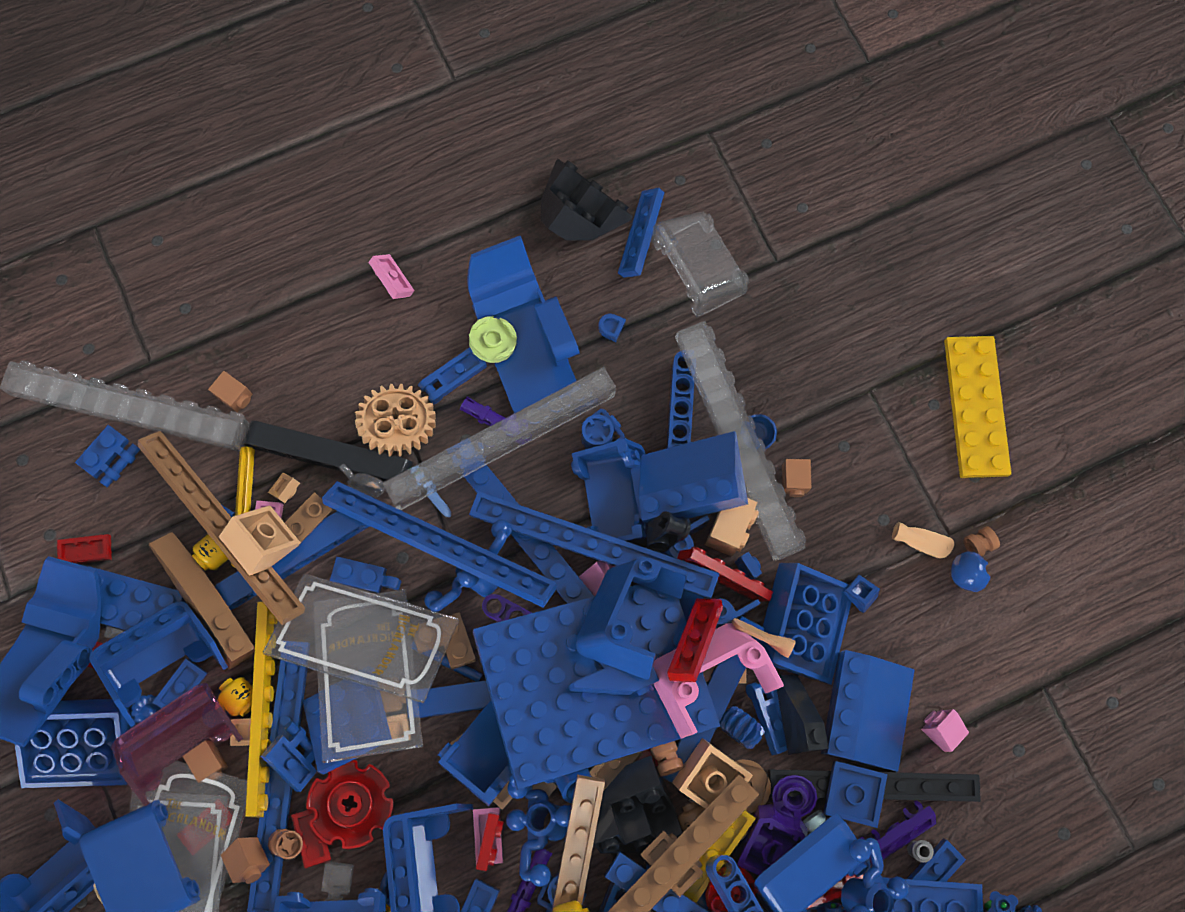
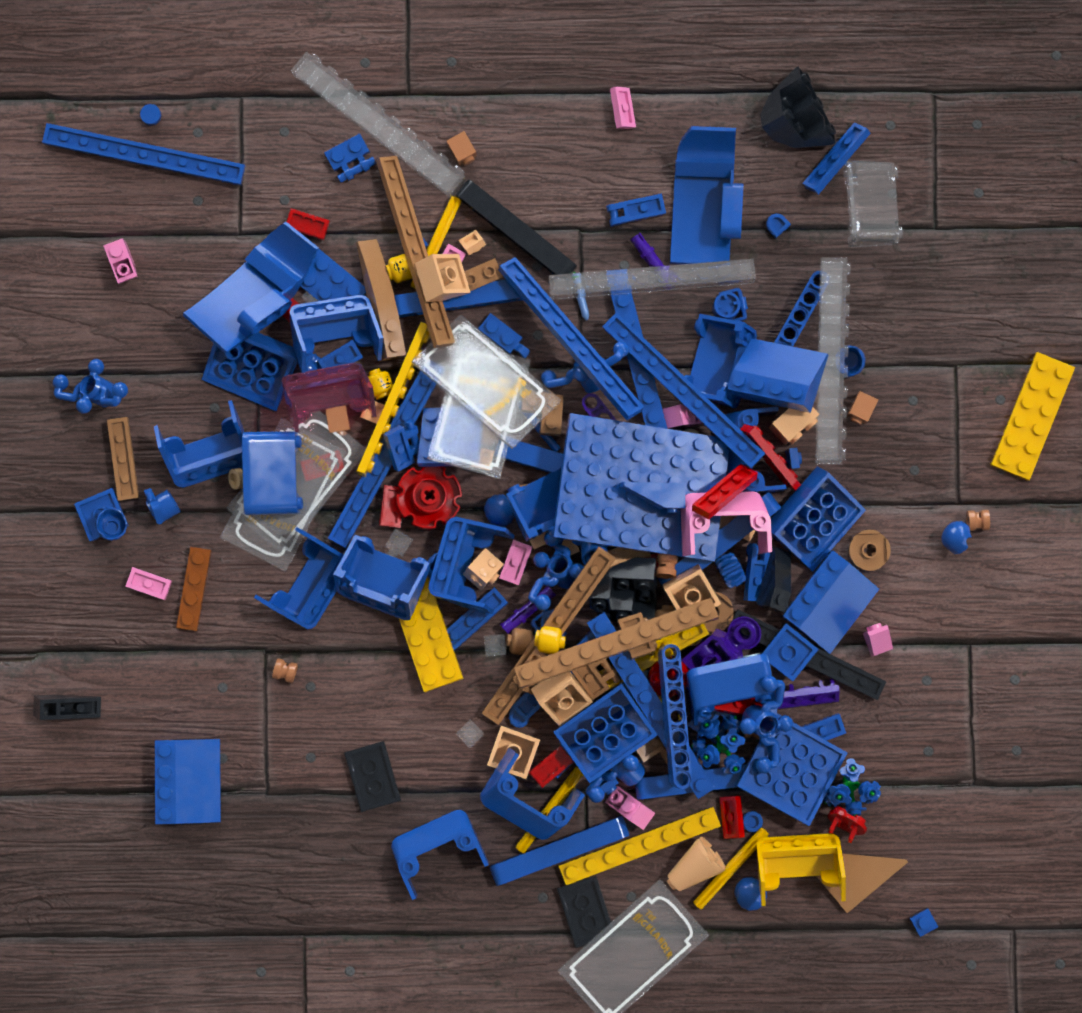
camera: 30 degrees right, 10 degrees up
(245, 860) = (342, 500): nougat brick -> none
(290, 845) = (377, 505): nougat wheel -> none
(364, 482) = (534, 266): clear piece -> none
(395, 420) = (574, 243): light nougat gear -> none
(440, 783) = (498, 510): none -> blue hair
(452, 864) = (483, 569): none -> light nougat head
(487, 853) = (521, 559): red plate -> none
(492, 339) = (679, 195): yellowish green tile -> none
(609, 639) = (662, 462): blue windscreen -> none
(666, 531) = (741, 405): black piece -> none
(781, 644) = (784, 522): light nougat piece -> none
(862, 593) = (868, 516): blue slope -> none
(885, 616) = (877, 558): none -> medium nougat plate
(924, 540) = (936, 499): light nougat piece -> none
(926, 850) = (822, 712): light grey pin -> none

